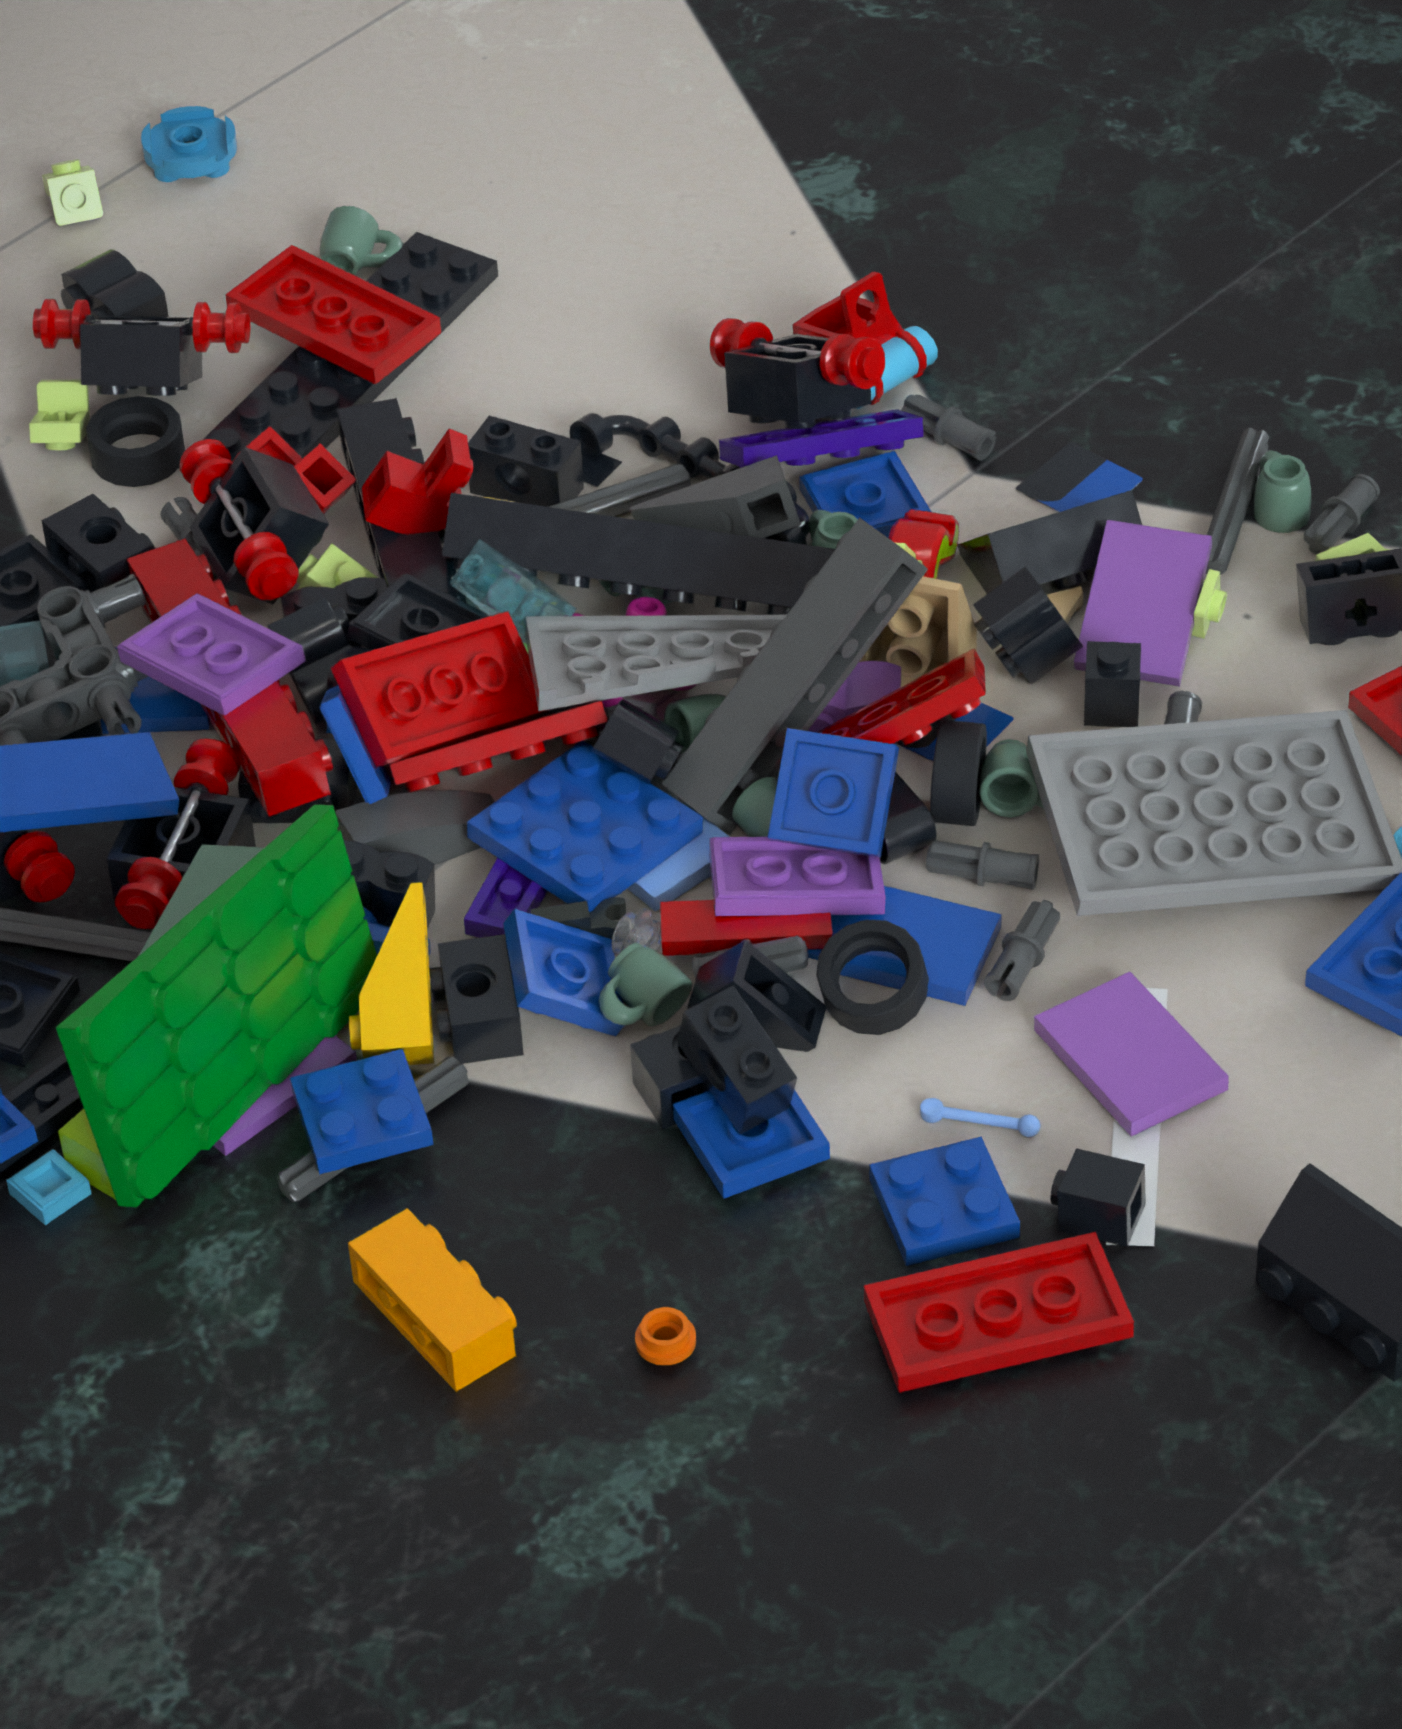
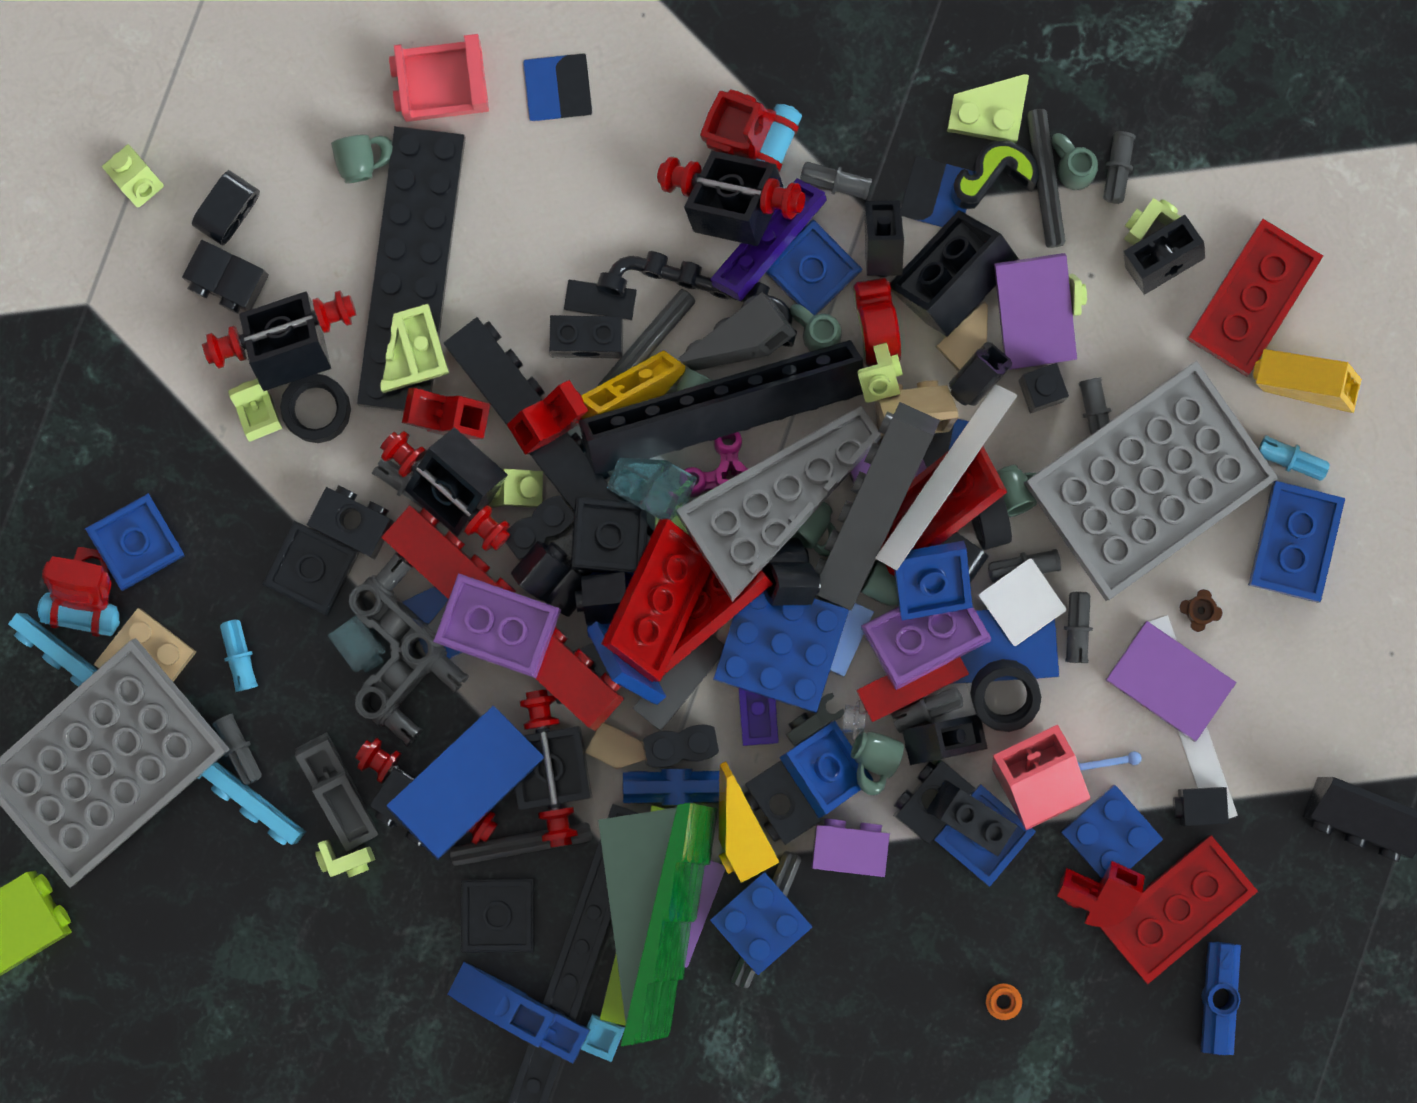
camera: 25 degrees left, 40 degrees up
(162, 240) = (225, 207): none -> black beam
(174, 159) = (167, 88): dark azure plate -> none
(294, 405) = (413, 350): none -> yellowish green wing
(334, 314) = (392, 250): red plate -> none
(433, 1299) = (867, 1034): light orange brick -> none
(500, 212) = (440, 80): none -> coral panel
(542, 1073) = (850, 849): none -> medium lavender brick
(643, 263) = (557, 87): none -> sticker
(870, 1071) = (1040, 777): none -> coral slope
(898, 1241) = (1106, 901): none -> red brick
(910, 673) = (946, 477): none -> white sticker
(956, 889) = (1022, 602): none -> white sticker
(974, 489) = (883, 238): none -> black slope
(1004, 1436) = (1220, 1023): none -> blue piece
(1160, 462) = (991, 162): none -> black animal
(1194, 422) = (990, 110): none -> yellowish green wing
(1218, 987) = (1210, 614): none -> reddish brown plate

